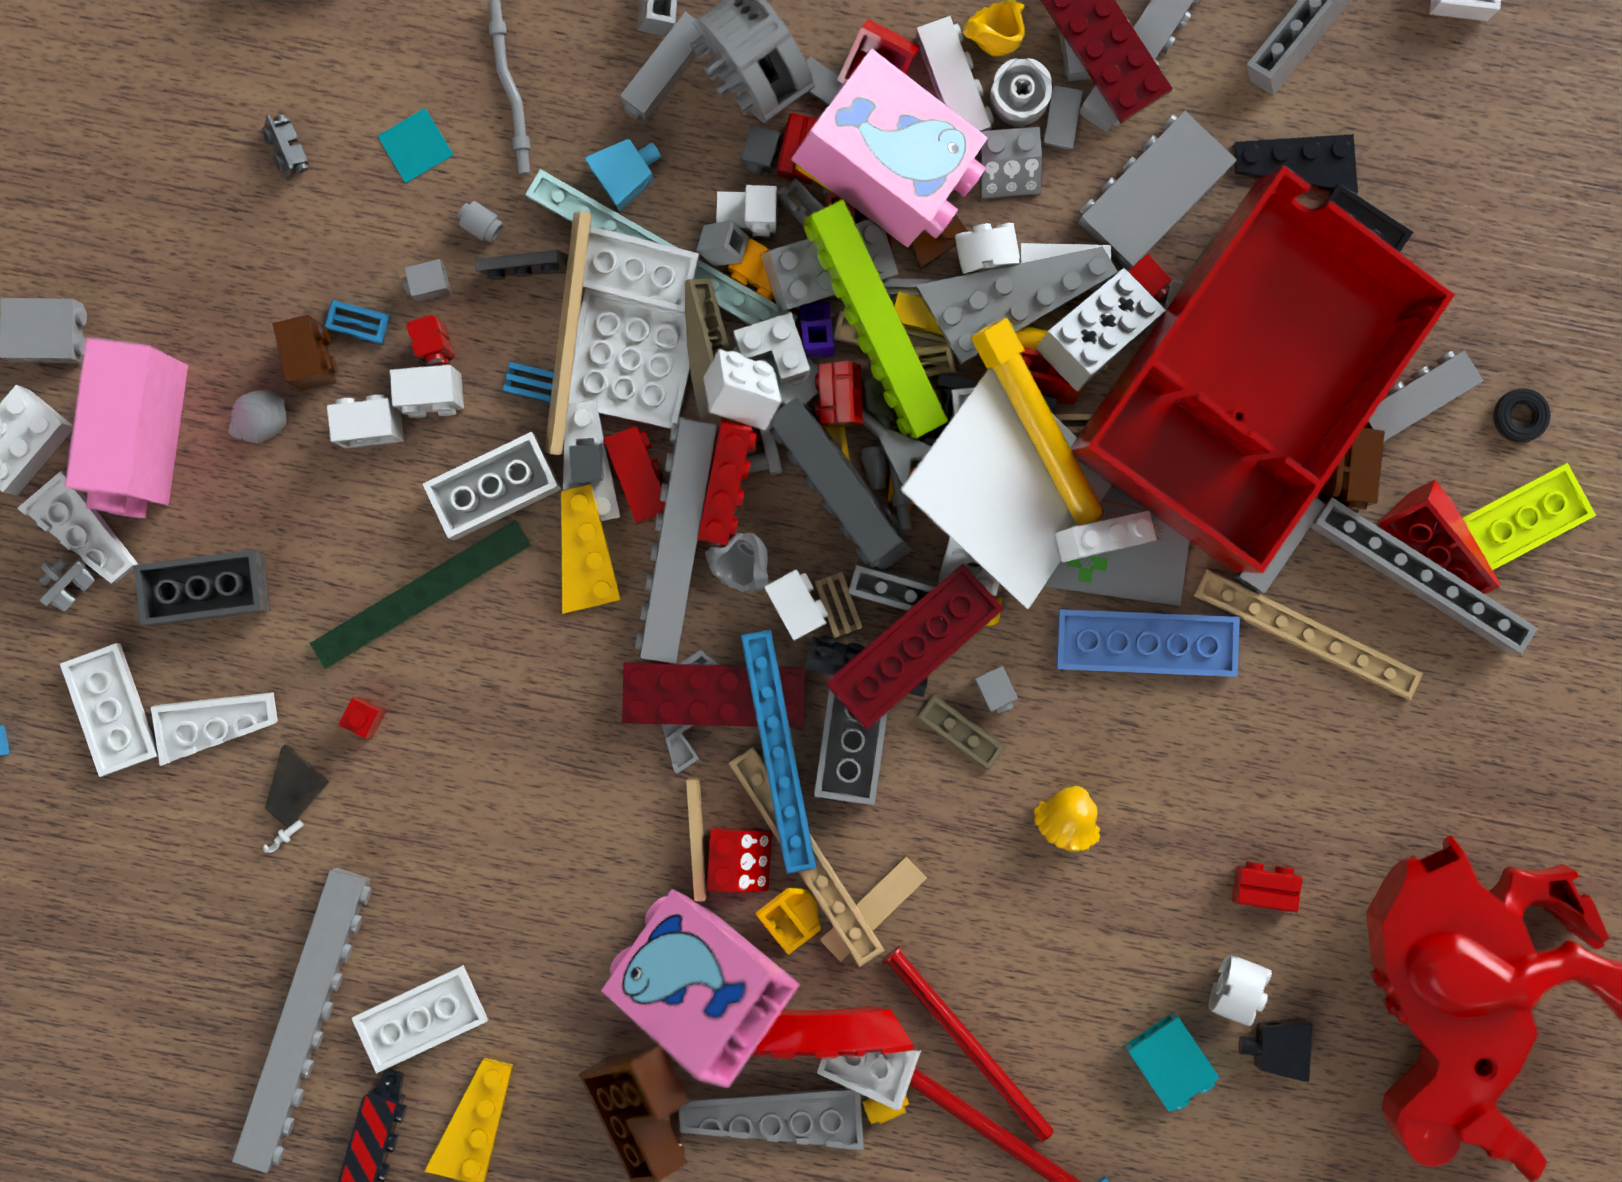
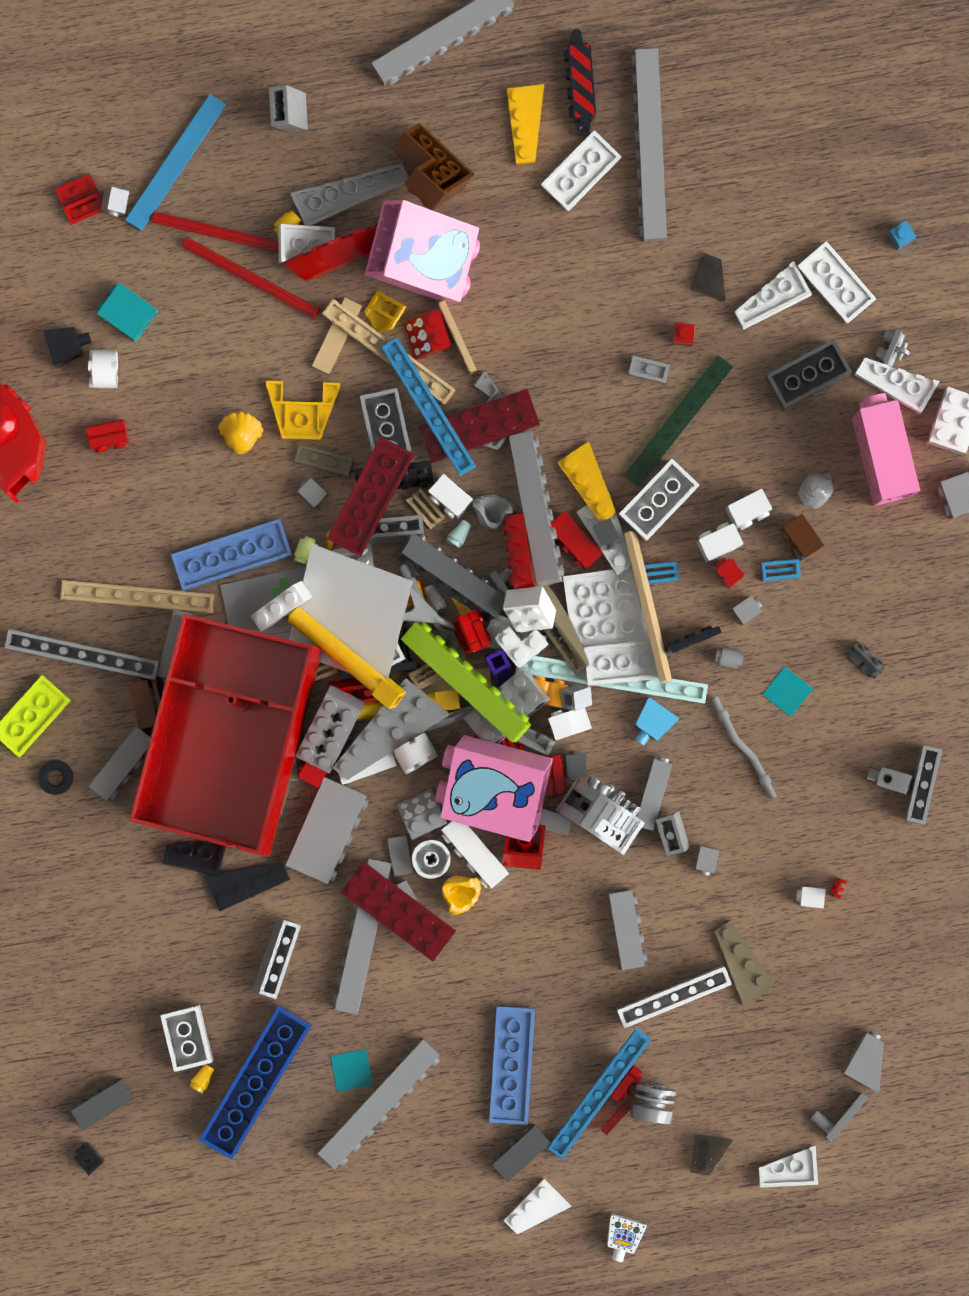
camera: 160 degrees right, 0 degrees up
(283, 836) = (704, 247): white hand -> none
(433, 685) = (649, 369): none -> light grey plate
(804, 547) = (458, 535): none -> light aqua cone
(972, 805) = (302, 419): none -> yellow wing
(1039, 611) = (303, 549): none -> yellowish green brick
(1435, 529) = (84, 687): red wedge -> none

